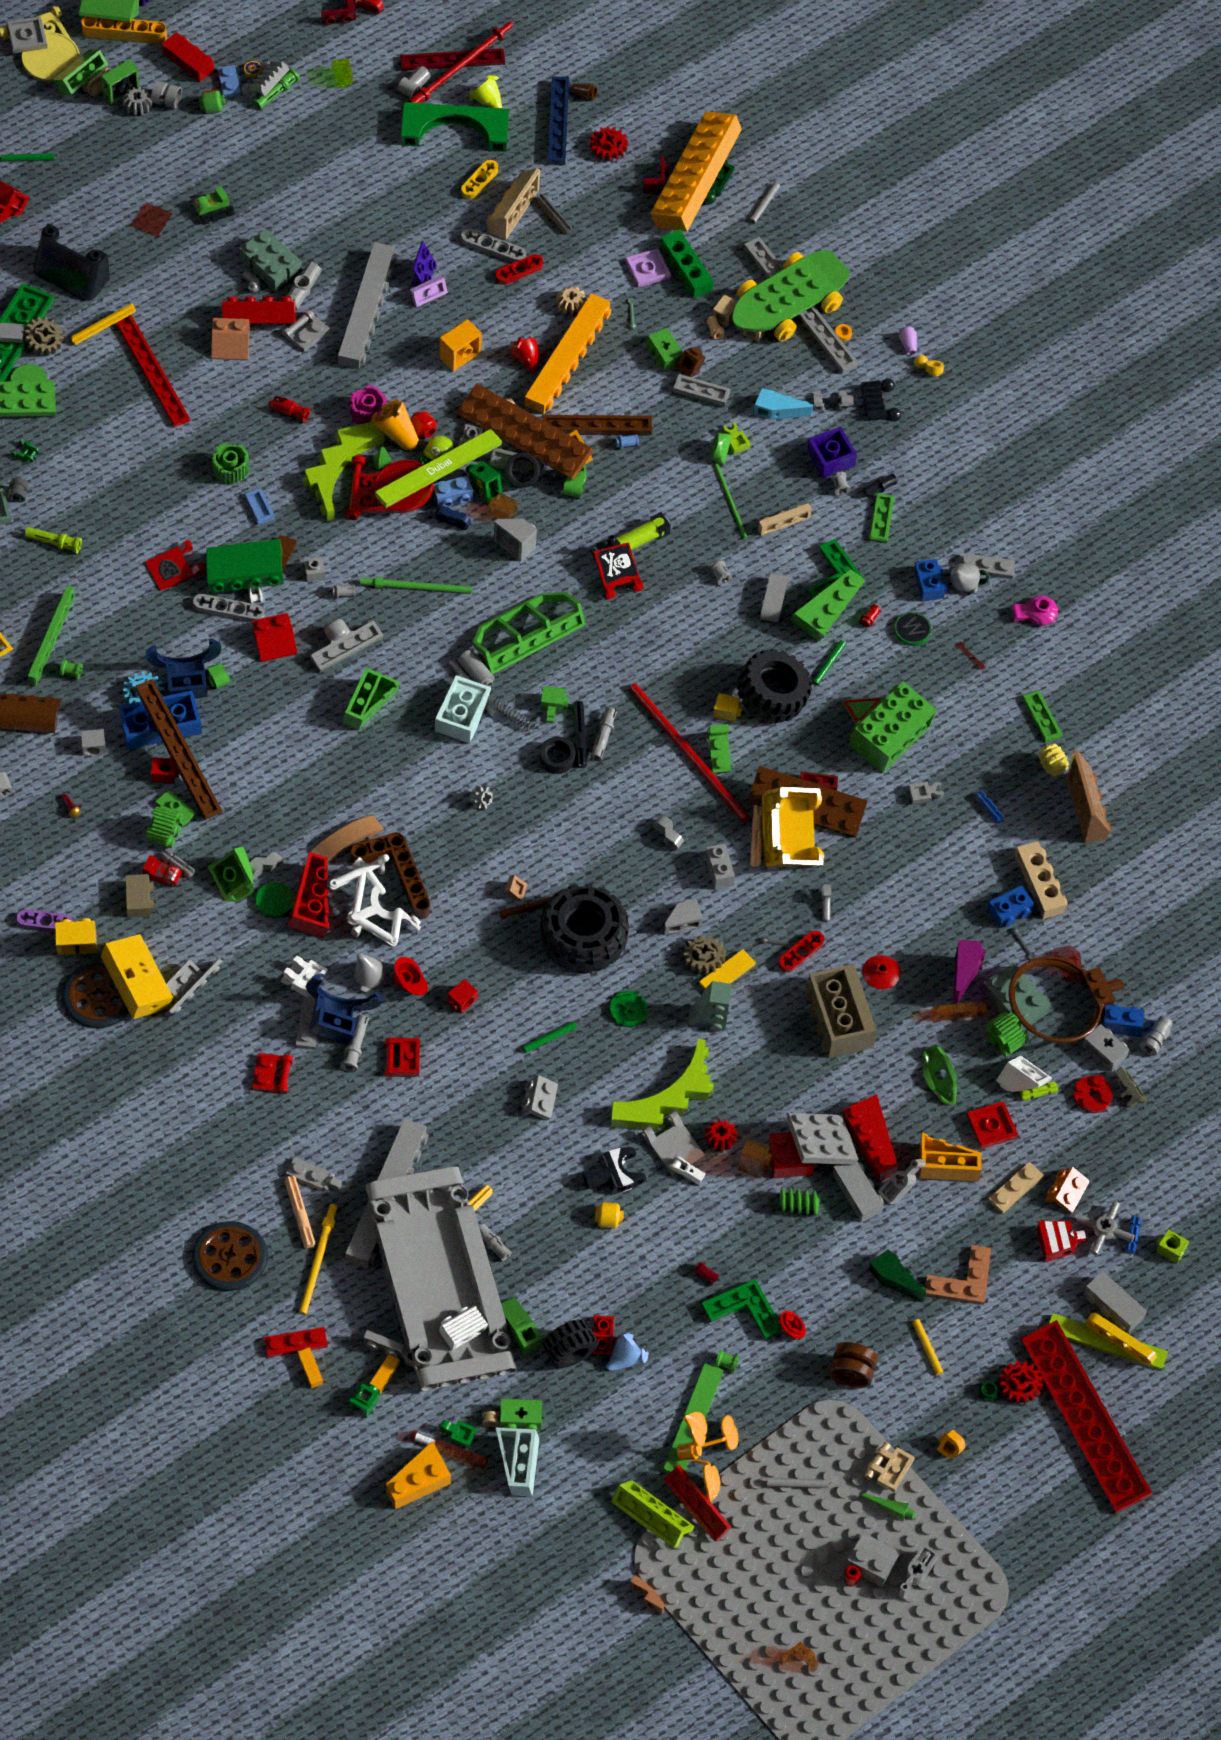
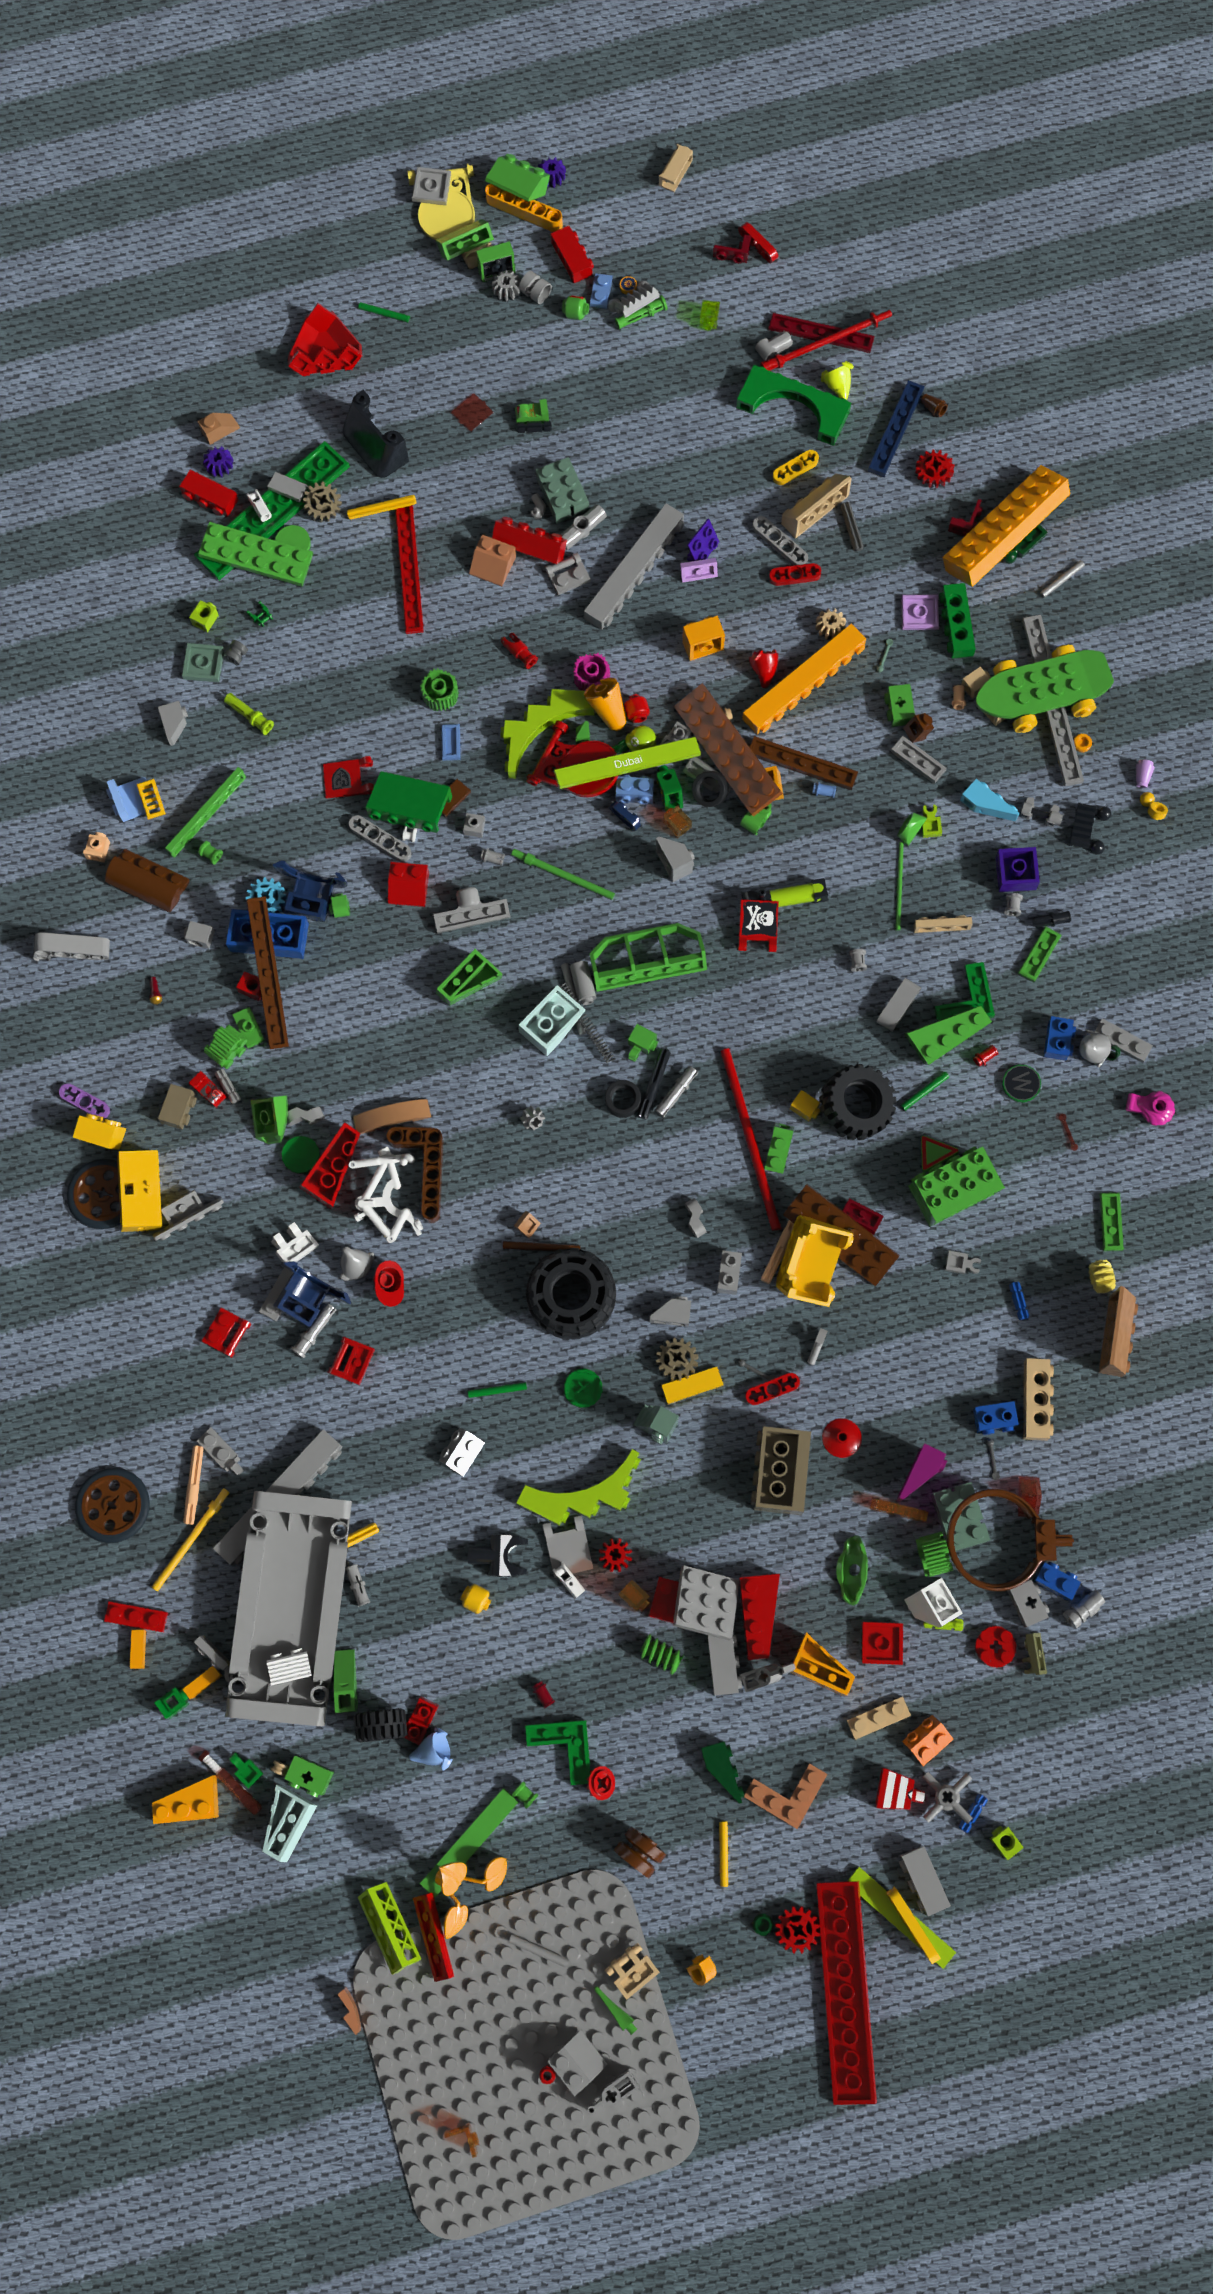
camera: 30 degrees right, 15 degrees up
(462, 996) = (430, 1319): red brick -> none

